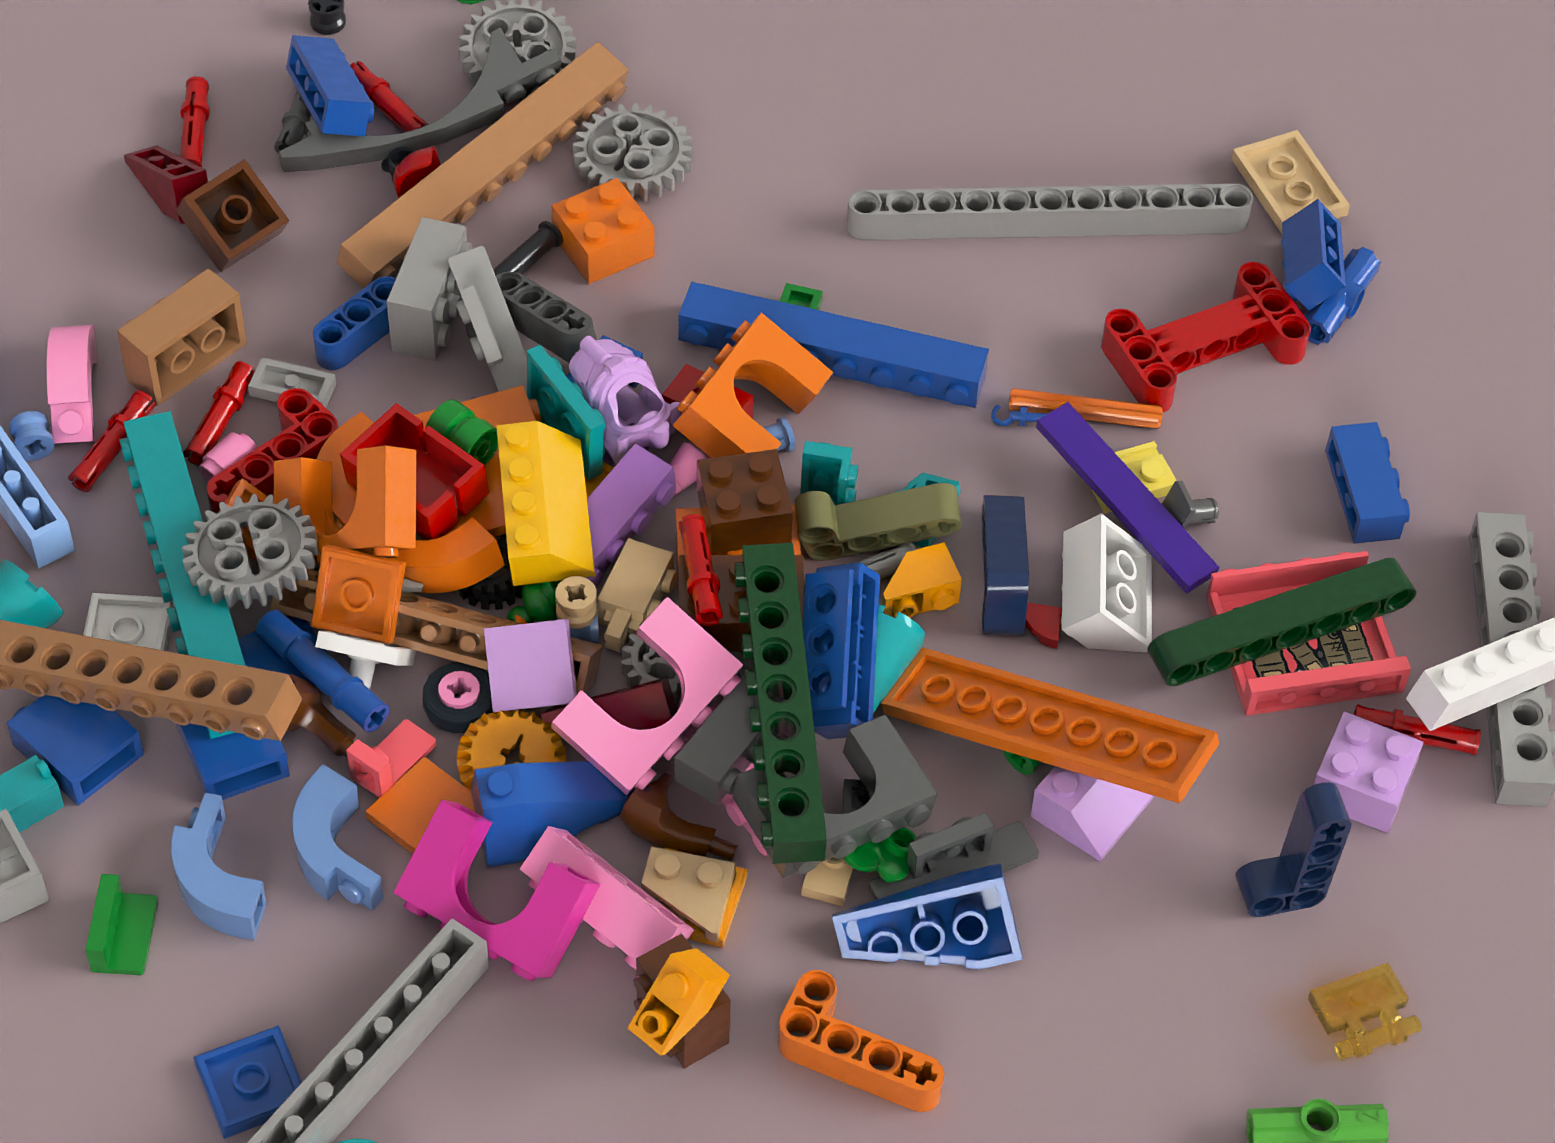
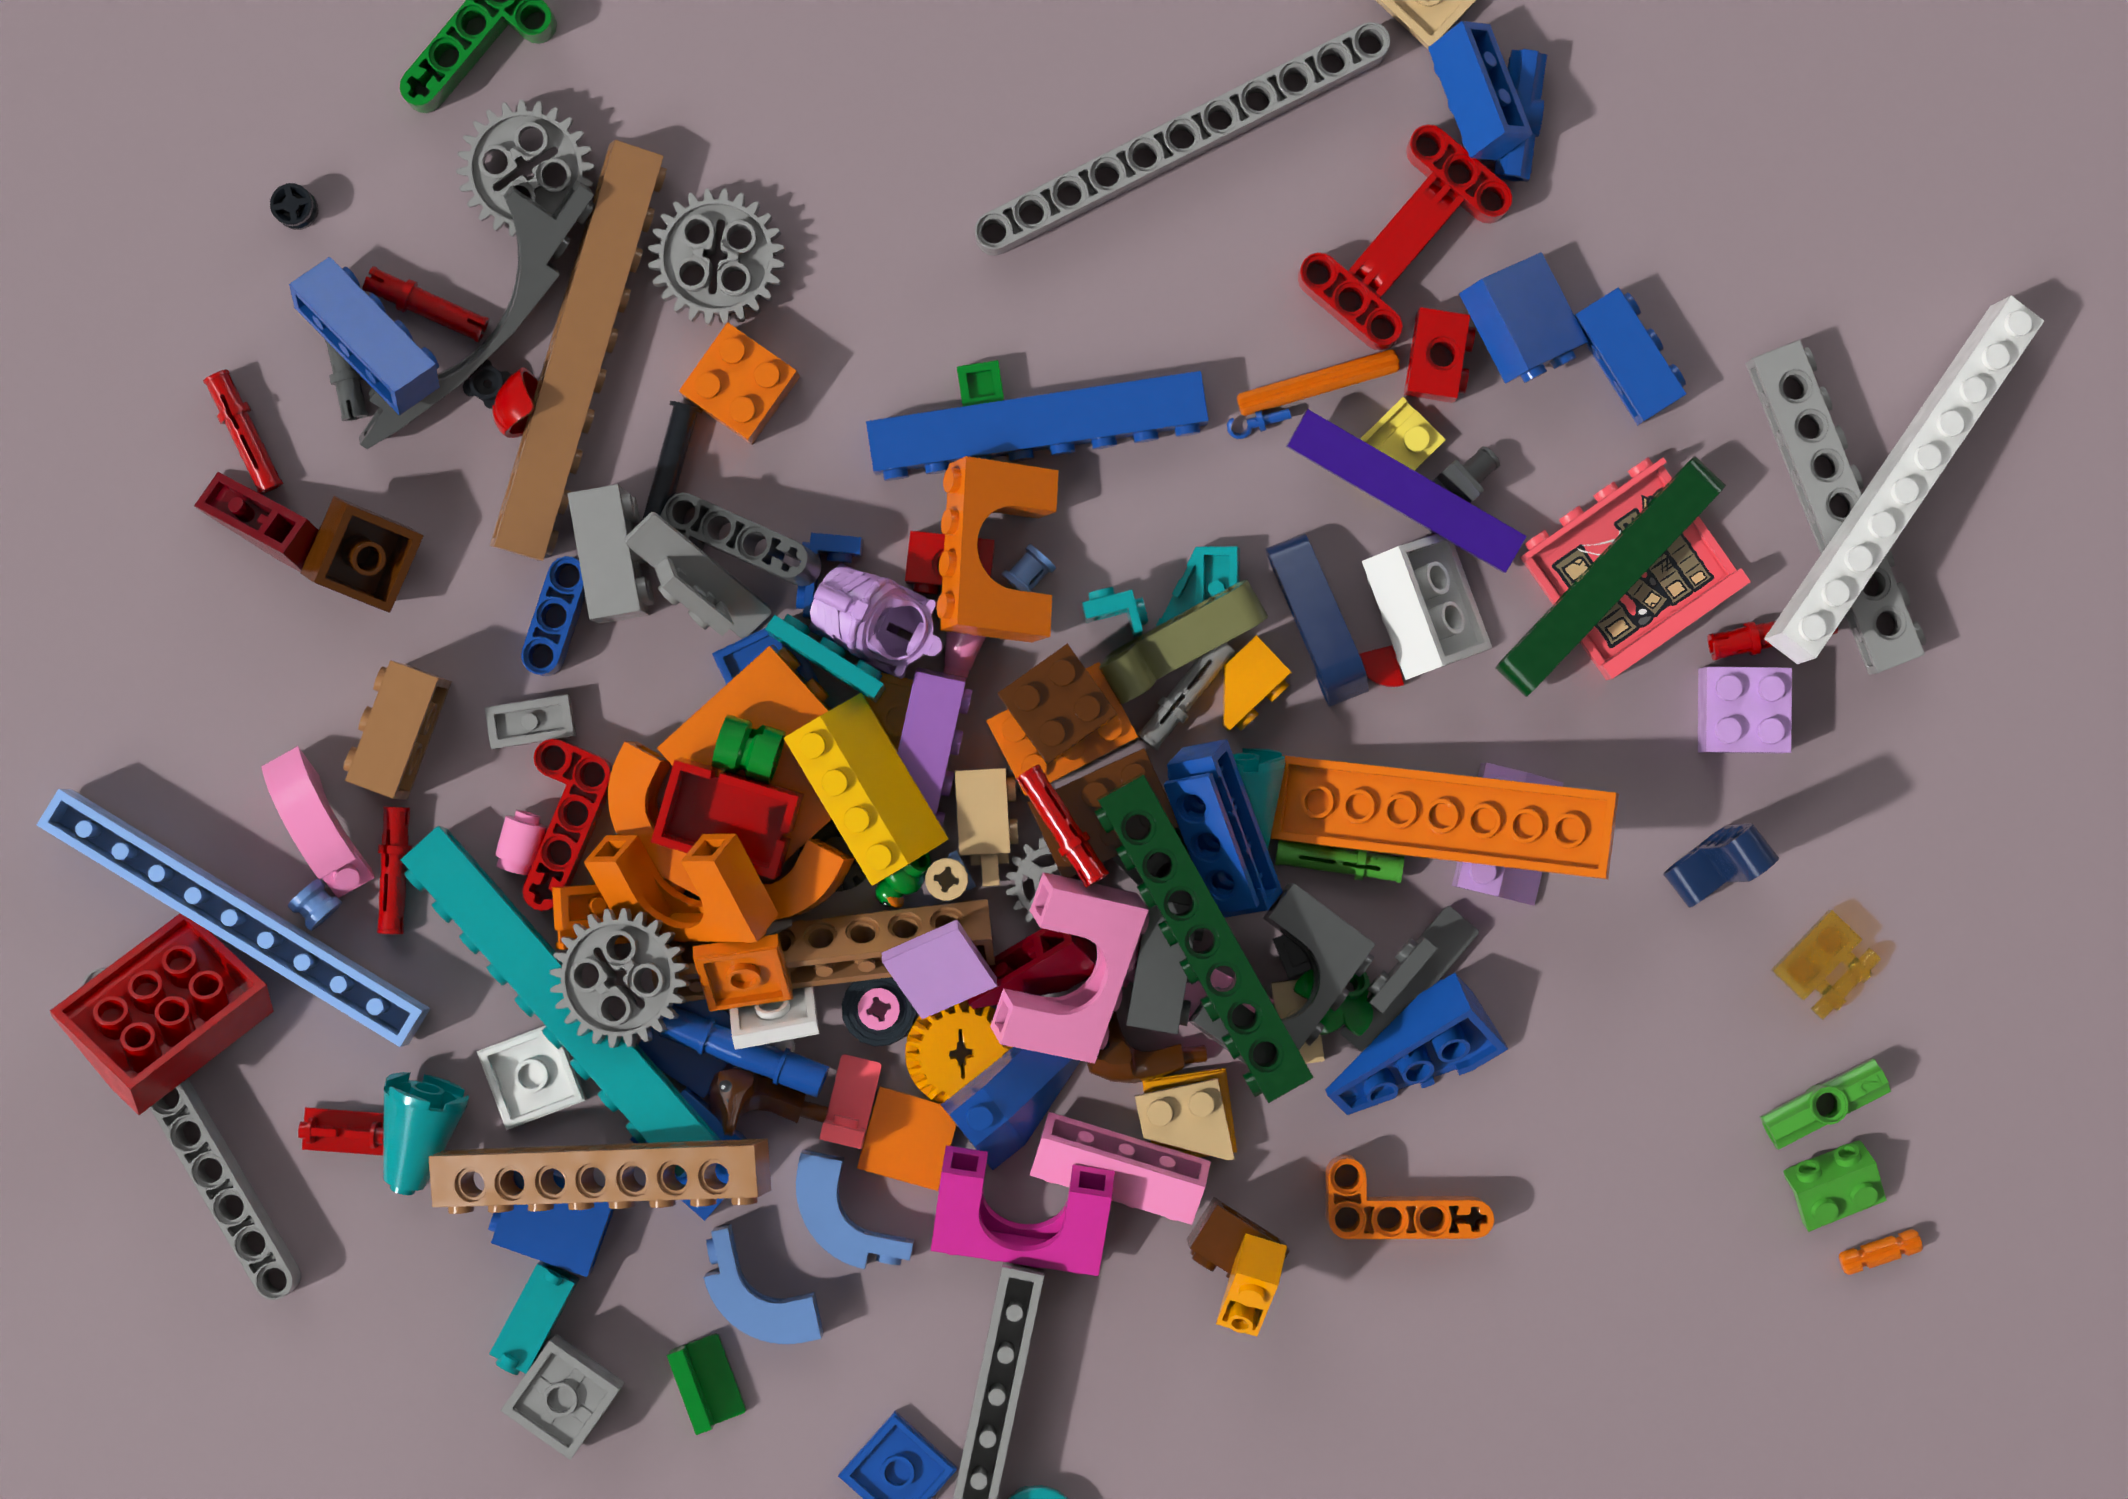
camera: 25 degrees left, 35 degrees up
(226, 401) = (478, 788): red pin -> none
(950, 755) = (1340, 860): none -> bright green pin
(1197, 422) = (1439, 329): none -> red brick
(1284, 414) = (1524, 319): none -> blue brick

